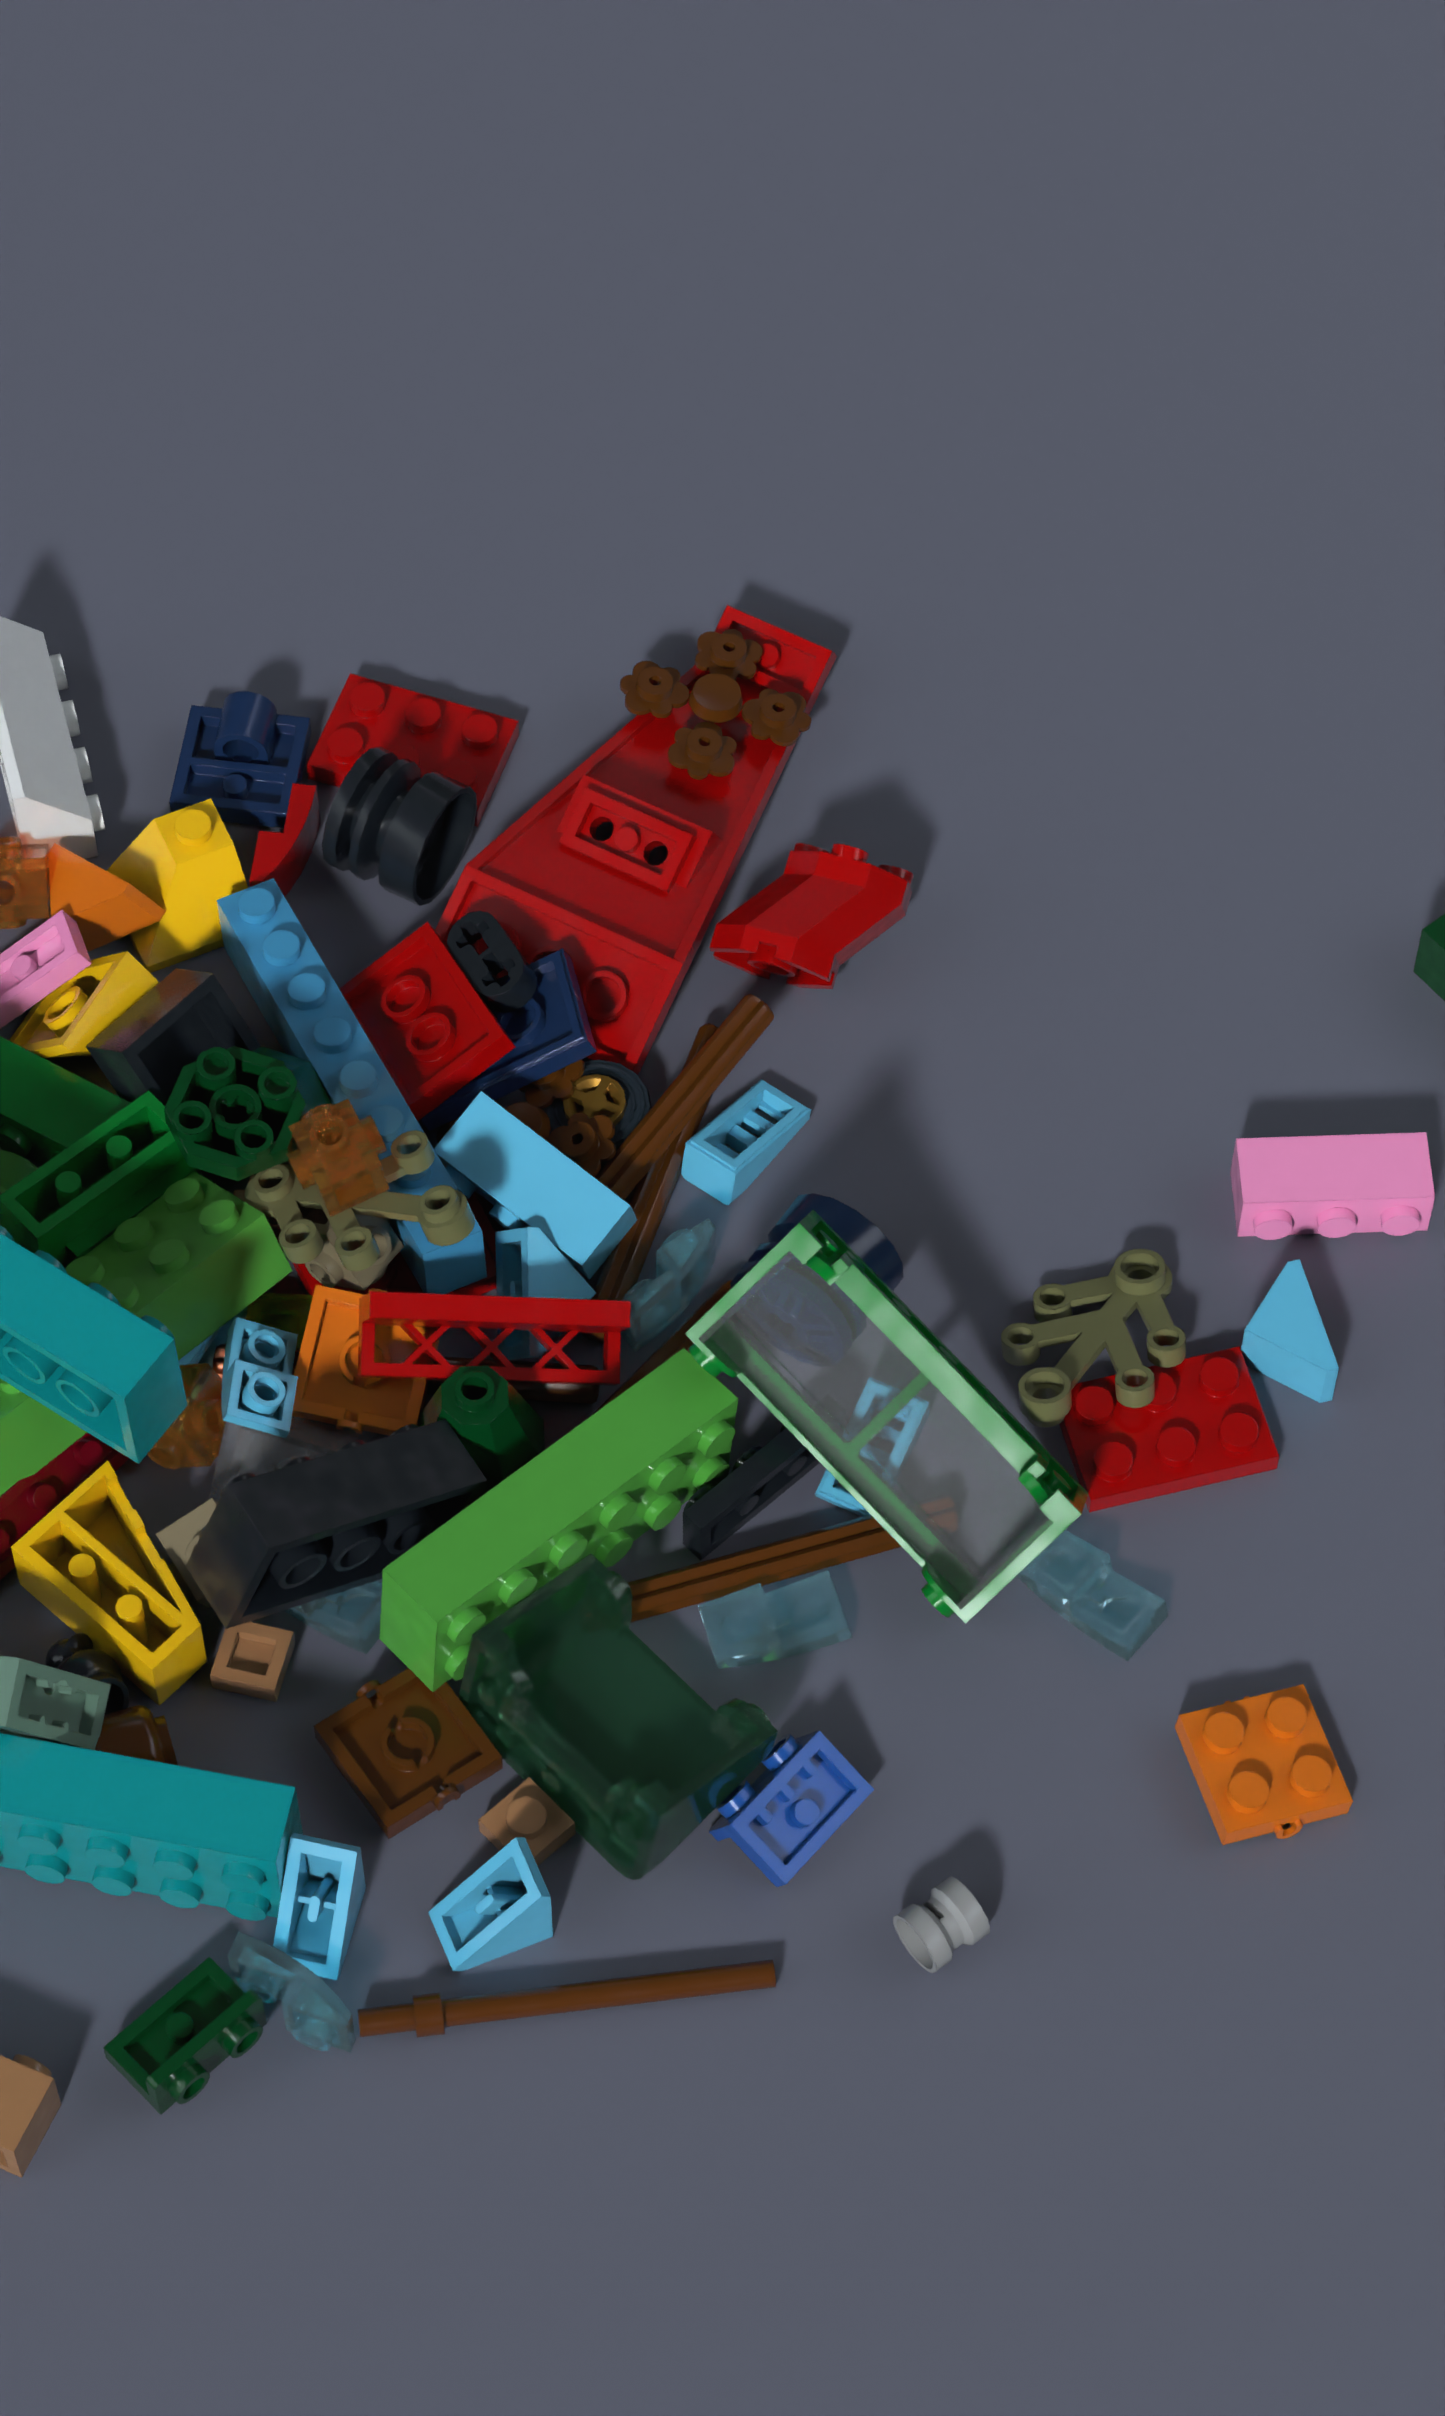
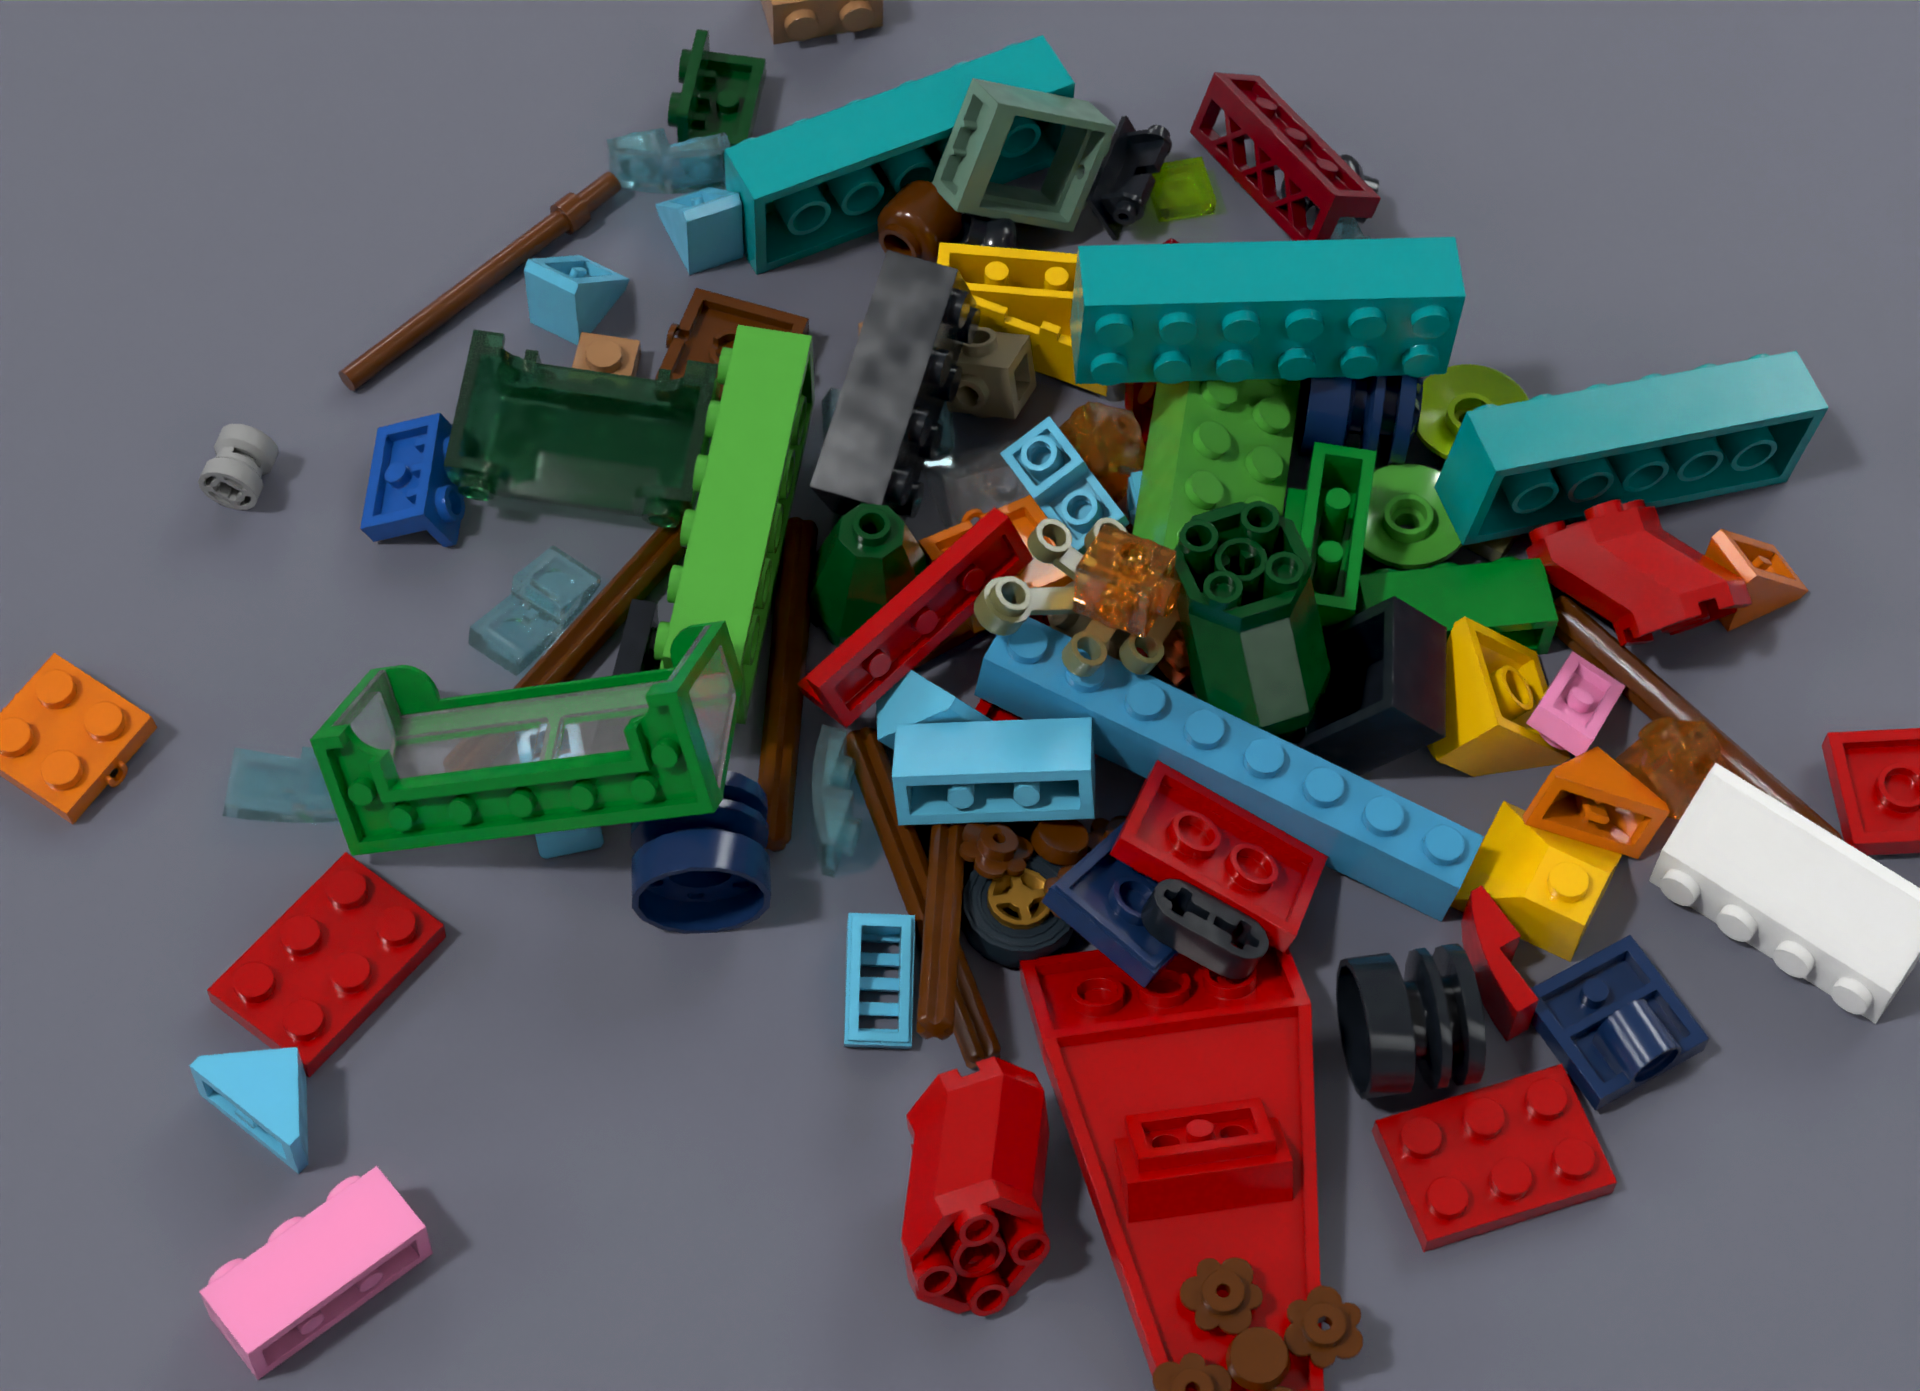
camera: 140 degrees right, 0 degrees up
(1135, 1281) = (432, 987): olive plant -> none

